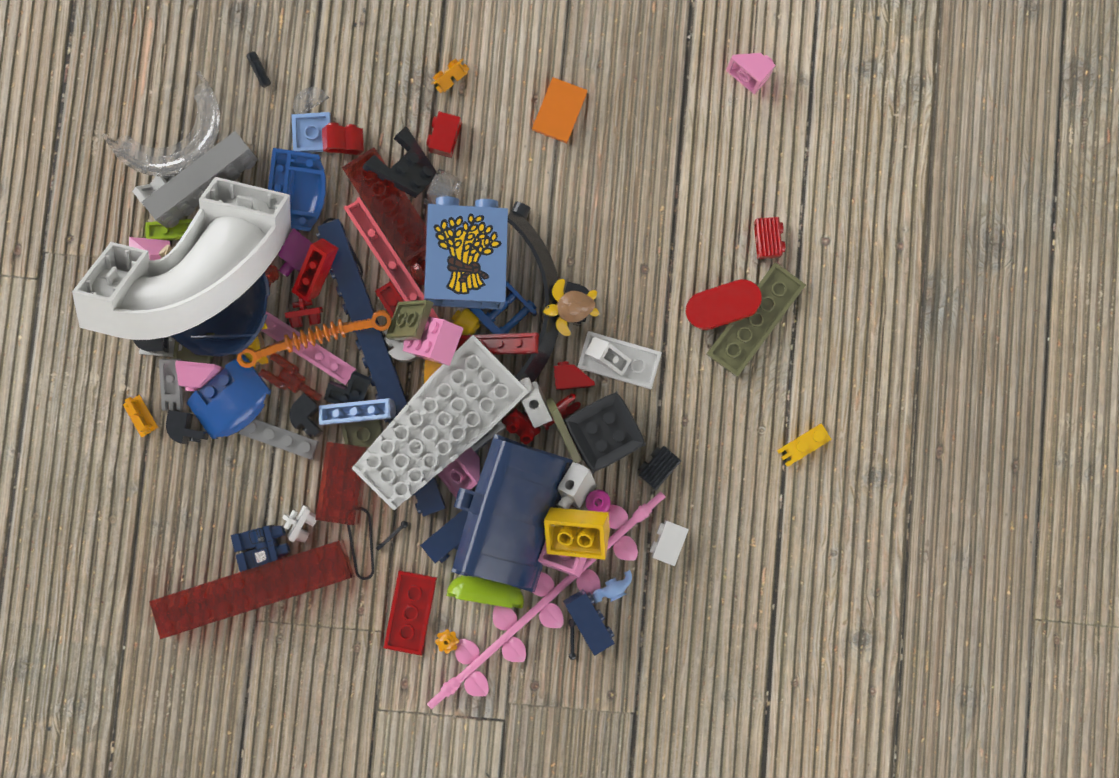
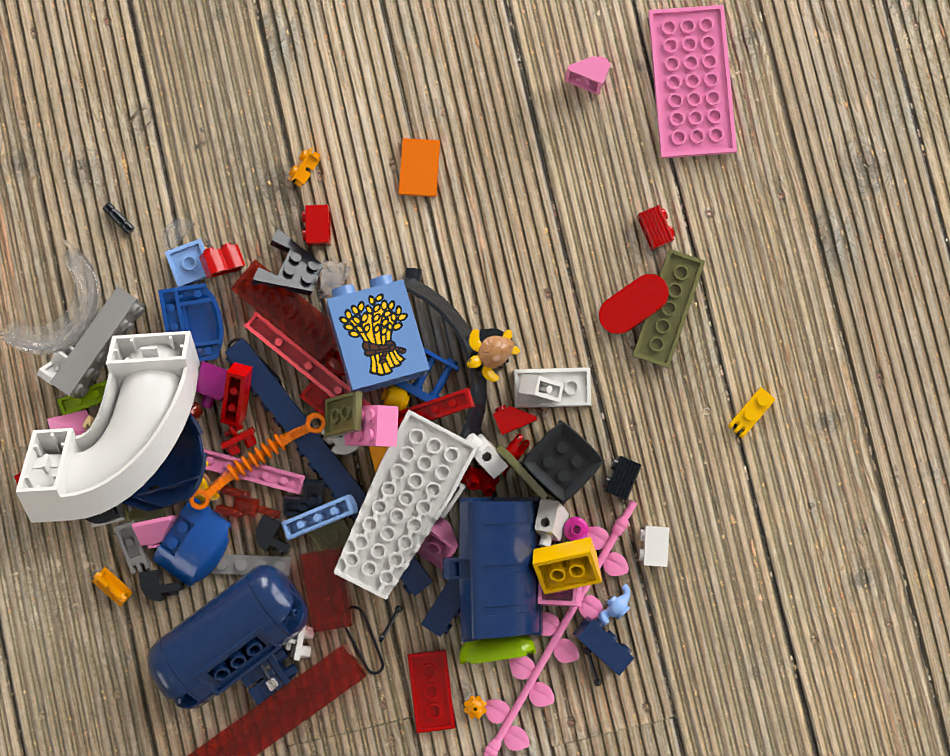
camera: 20 degrees left, 0 degrees up
(231, 497) = (227, 637): none -> dark blue piece
(849, 109) = (692, 81): none -> bright pink plate

